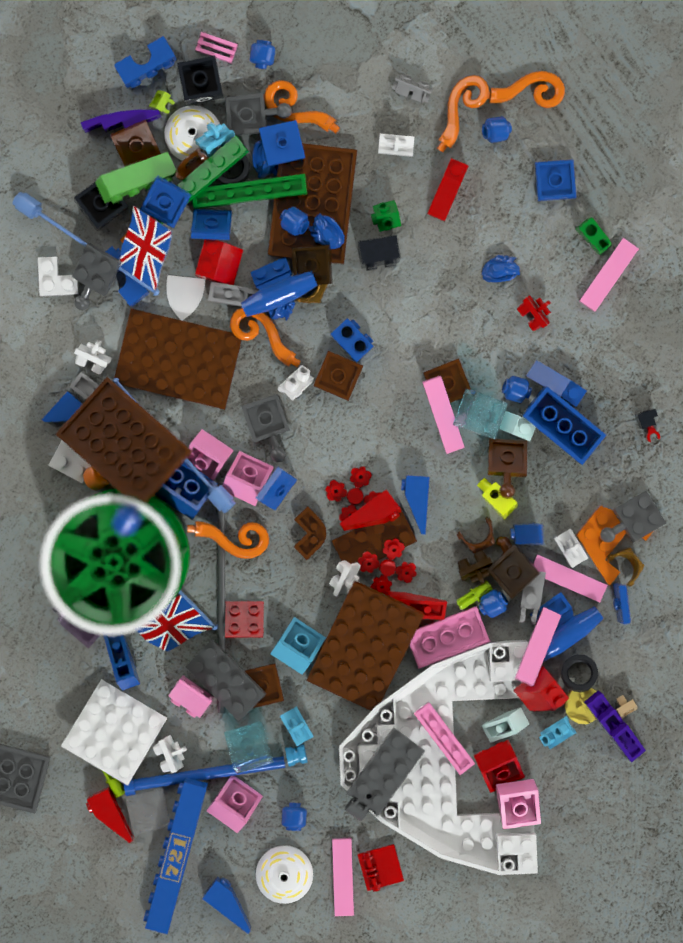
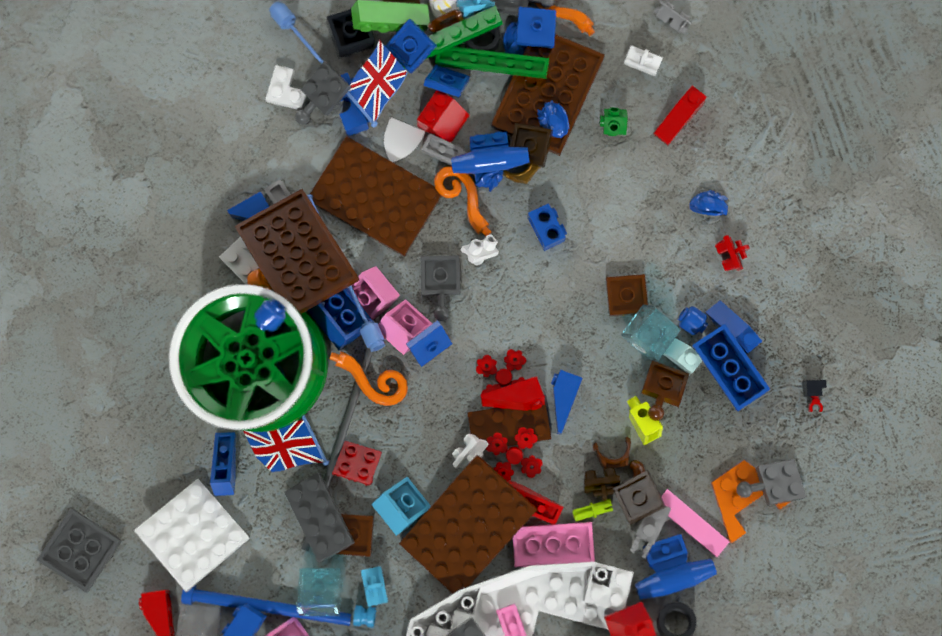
camera: 20 degrees right, 10 degrees down
(84, 636) = (197, 427): clear purple hinge -> none
(93, 353) = (288, 164): white hips -> none
(115, 785) = (174, 589): lime axle -> none
(172, 752) = (241, 575): white hips -> none
(191, 697) = (279, 523): bright pink slope -> none
(294, 221) = (526, 99): blue head -> none
(315, 533) = (453, 400): reddish brown plate -> none
(338, 375) = (523, 256): reddish brown plate -> none
(379, 252) = (597, 151): black brick -> none
(443, 414) = (613, 322): bright pink tile -> none
(452, 129) = (696, 68): orange plant -> none
(493, 603) = (609, 524): blue head -> none
(496, 129) = (742, 74): blue head -> none
(501, 95) = (758, 46): orange plant -> none
(527, 533) = (664, 463): blue slope -> none
(537, 646) = (641, 580): bright pink tile -> none
(555, 180) = (785, 137): blue plate -> none
(571, 548) = (703, 492): white hips -> none
(594, 235) = (809, 199): green leg -> none
(608, 275) = (813, 240): bright pink tile -> none
(621, 603) = (739, 563): blue plate -> none
(636, 563) = (761, 521): pearl gold helmet -> none

